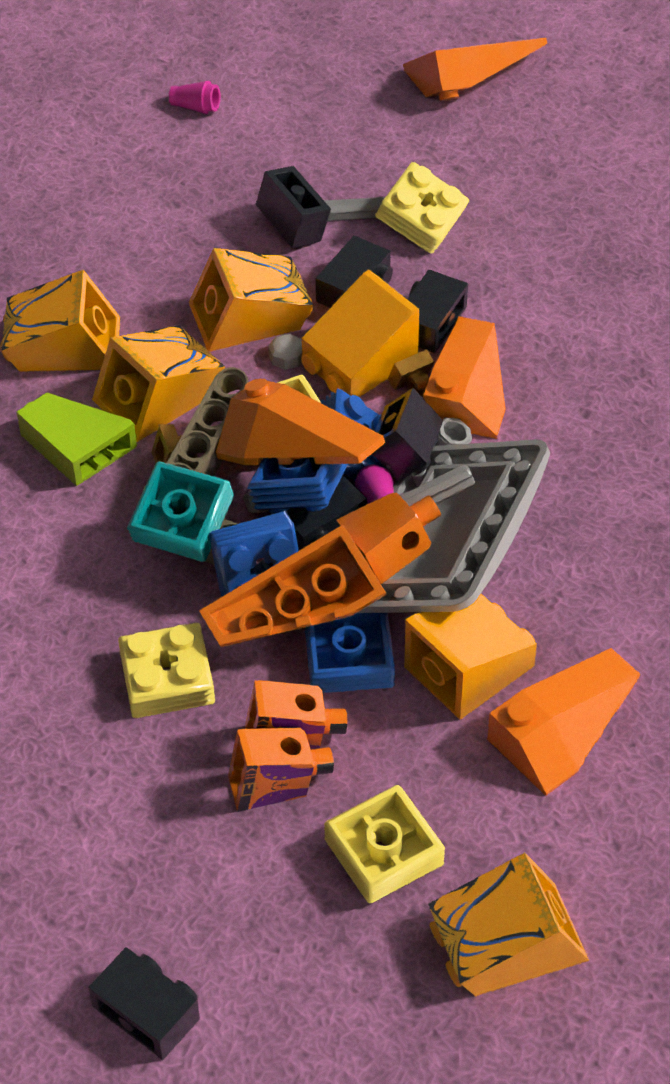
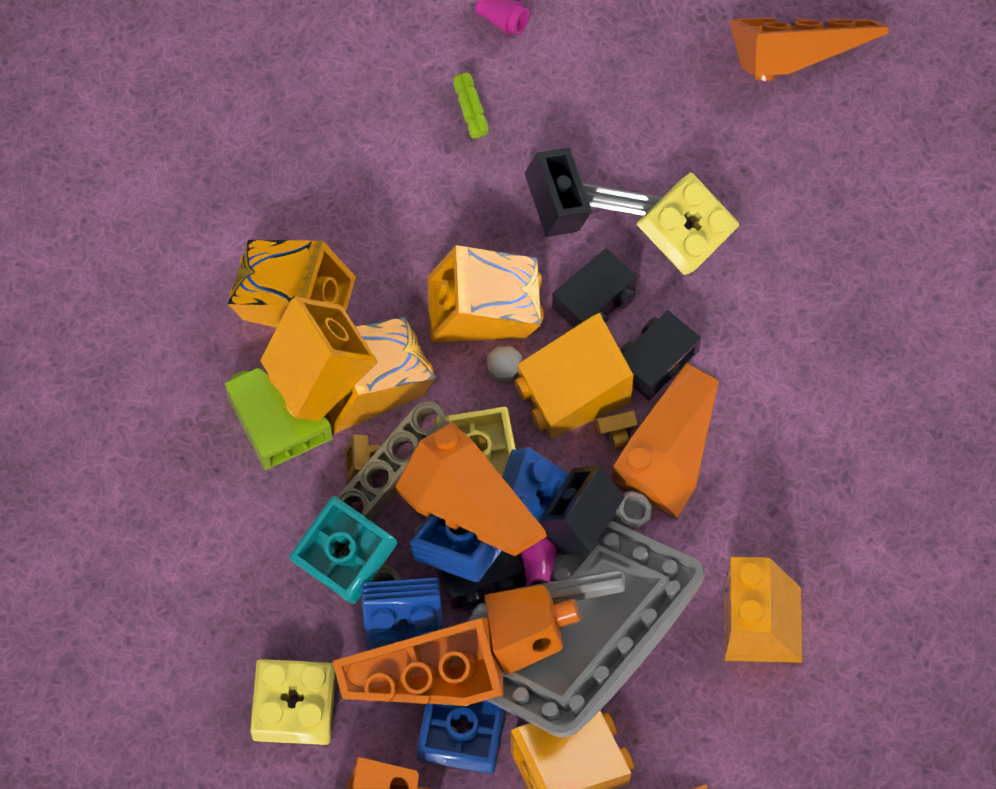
camera: 15 degrees right, 15 degrees up
(103, 355) = (315, 357): none -> light orange slope
(188, 168) = (470, 105): none -> lime axle
(606, 483) = (761, 612): none -> light orange slope

